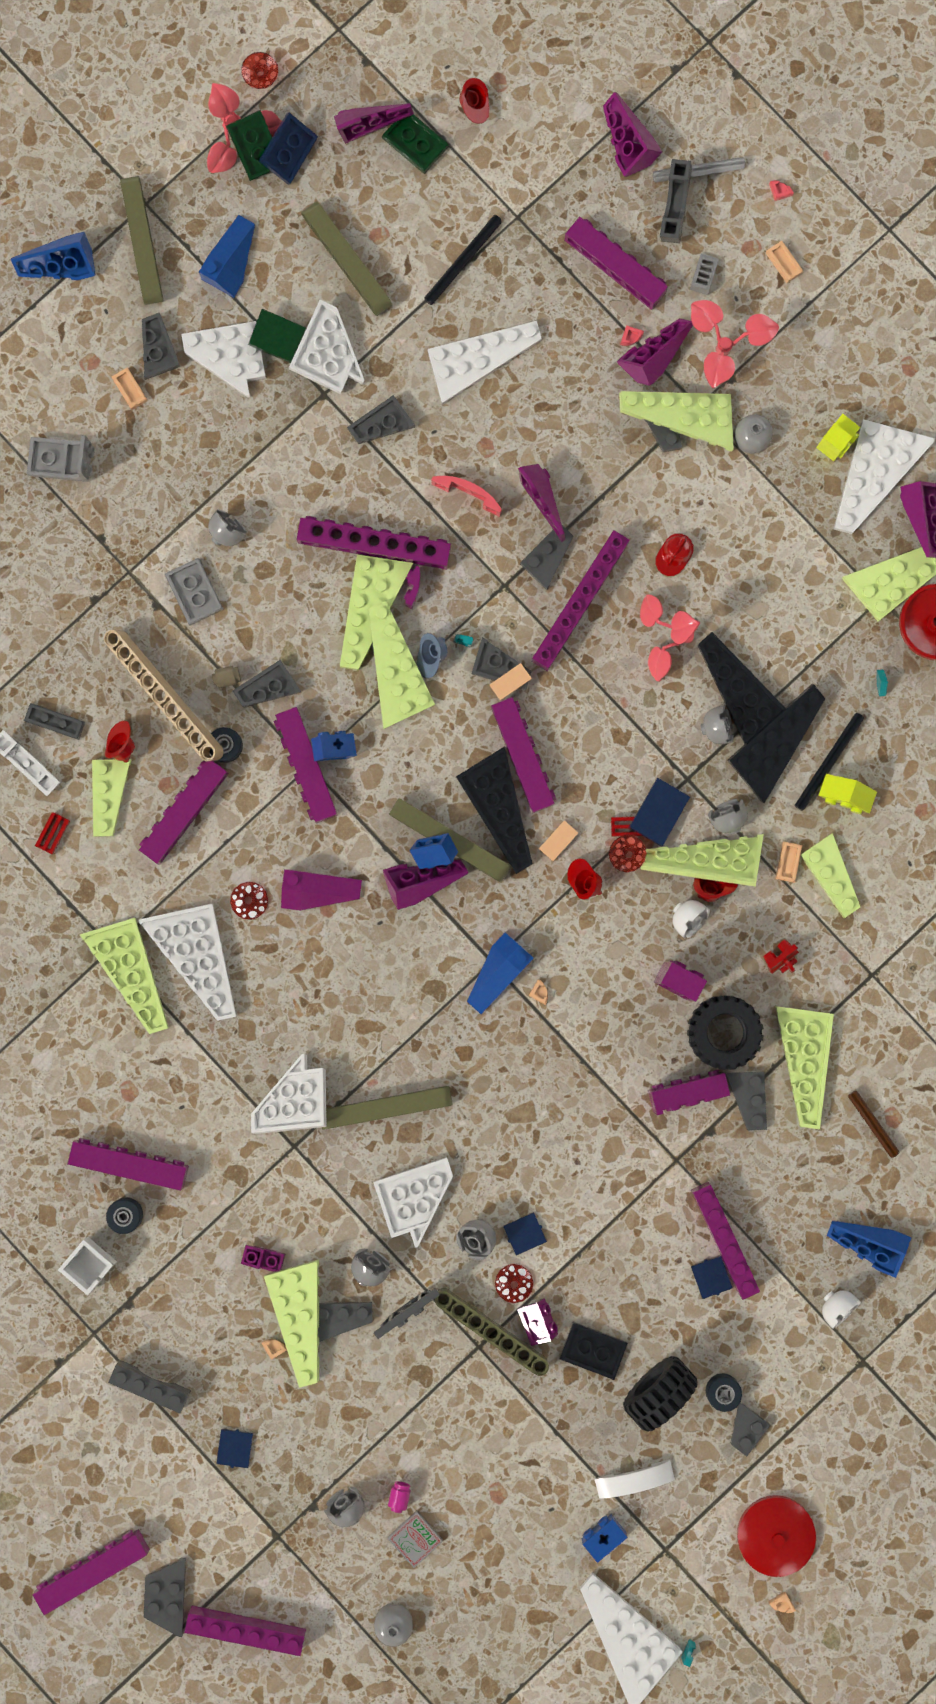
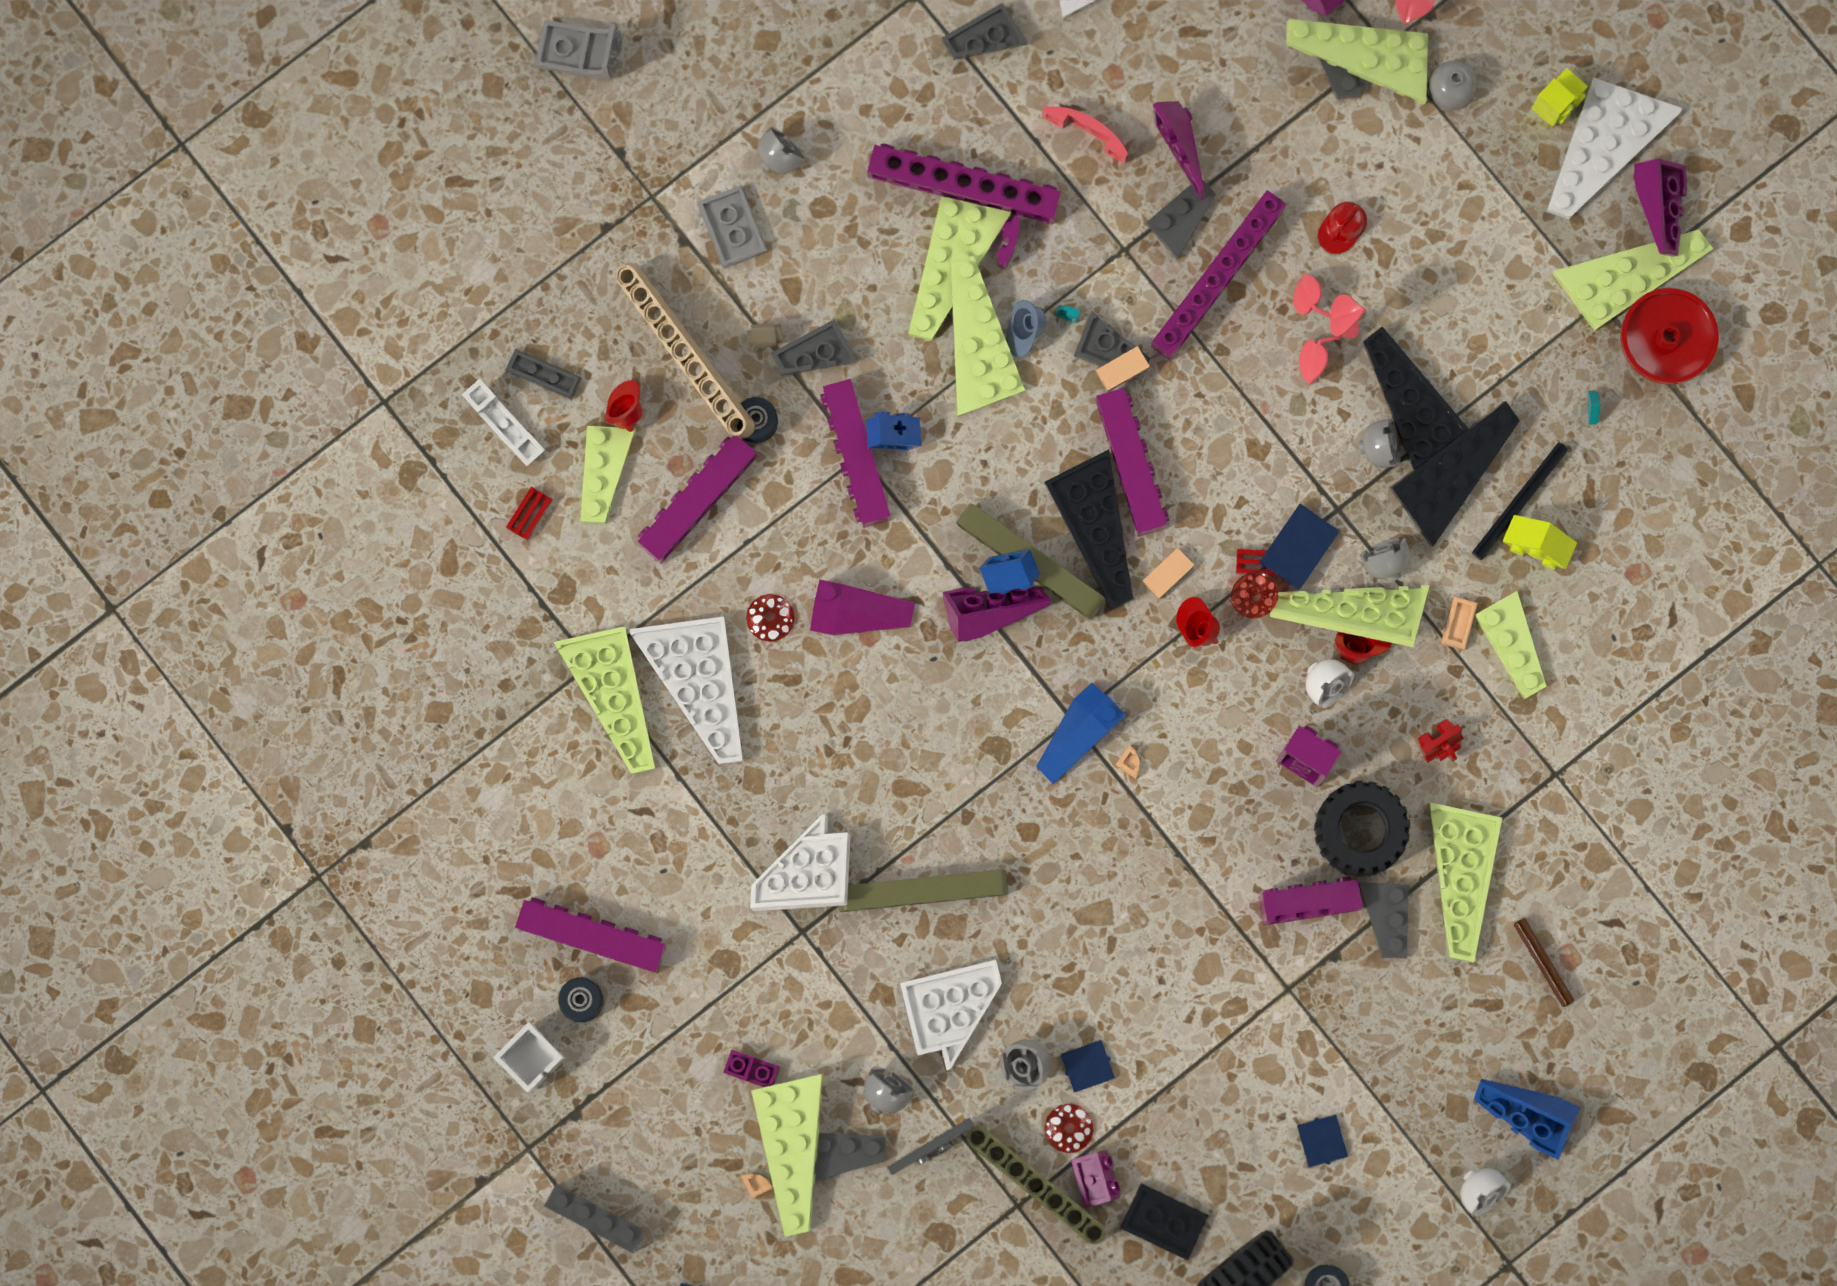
camera: 10 degrees right, 5 degrees down
(725, 1240) = (1343, 1093): magenta brick -> none

